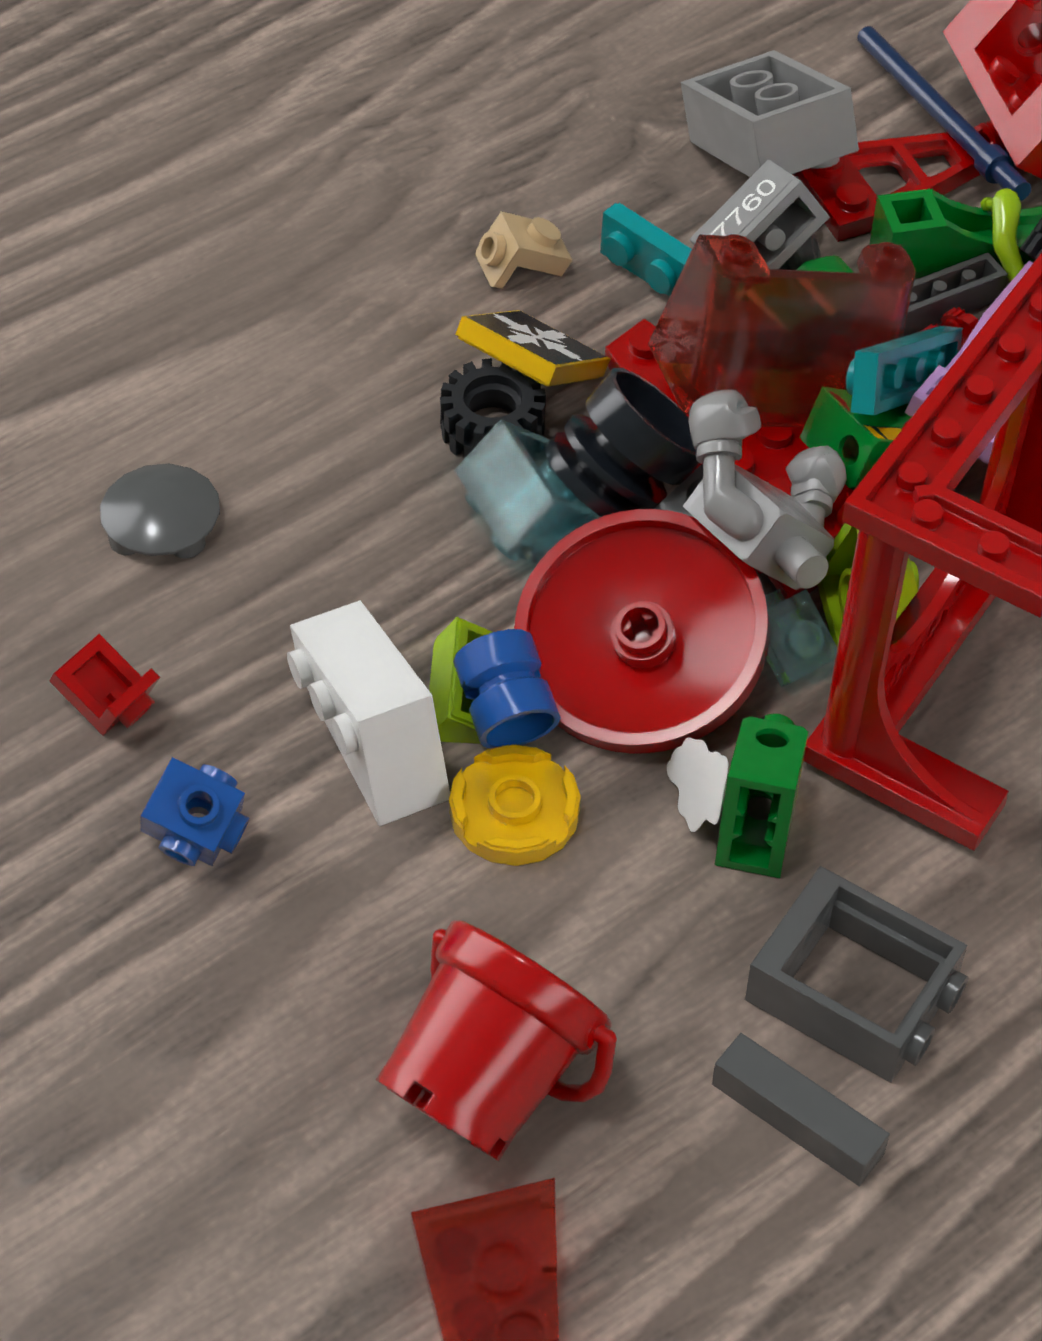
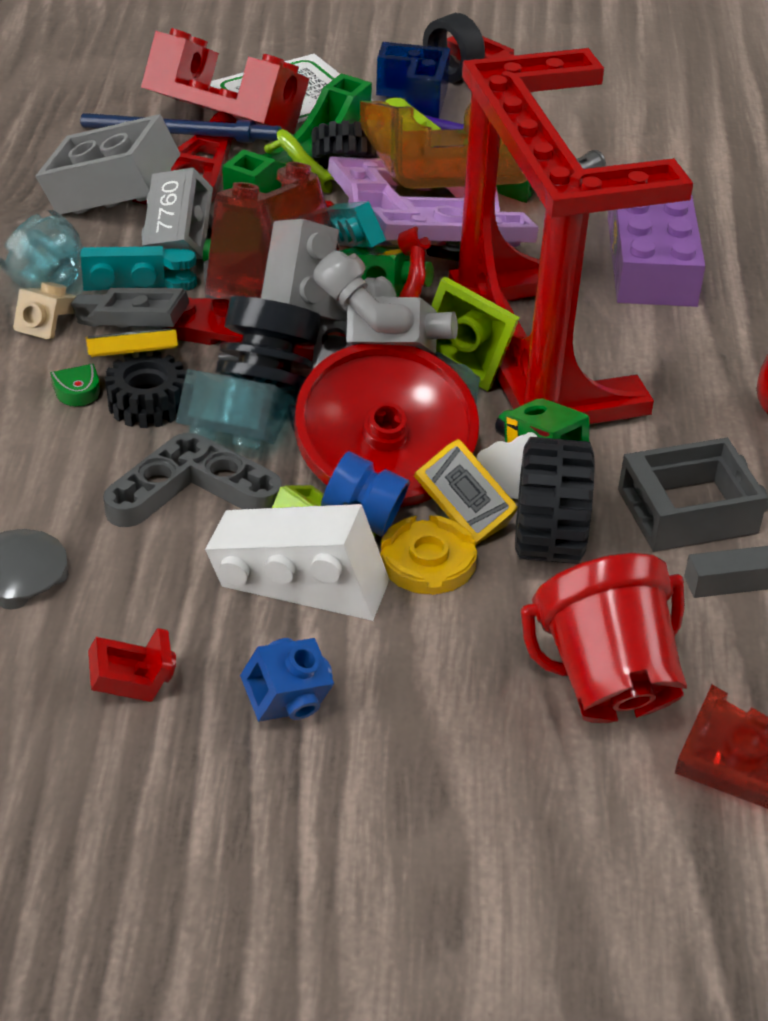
camera: 50 degrees left, 10 degrees down
(428, 533) = (184, 461): none -> dark grey beam
(441, 355) = (76, 385): none -> green tile
(579, 181) = (43, 252): none -> clear light blue cylinder
(592, 310) = (132, 307): none -> dark grey hinge
(615, 771) = (466, 491): none -> slope
(655, 850) = (554, 500): none -> black tyre
(743, 360) = (291, 261): none -> light grey brick

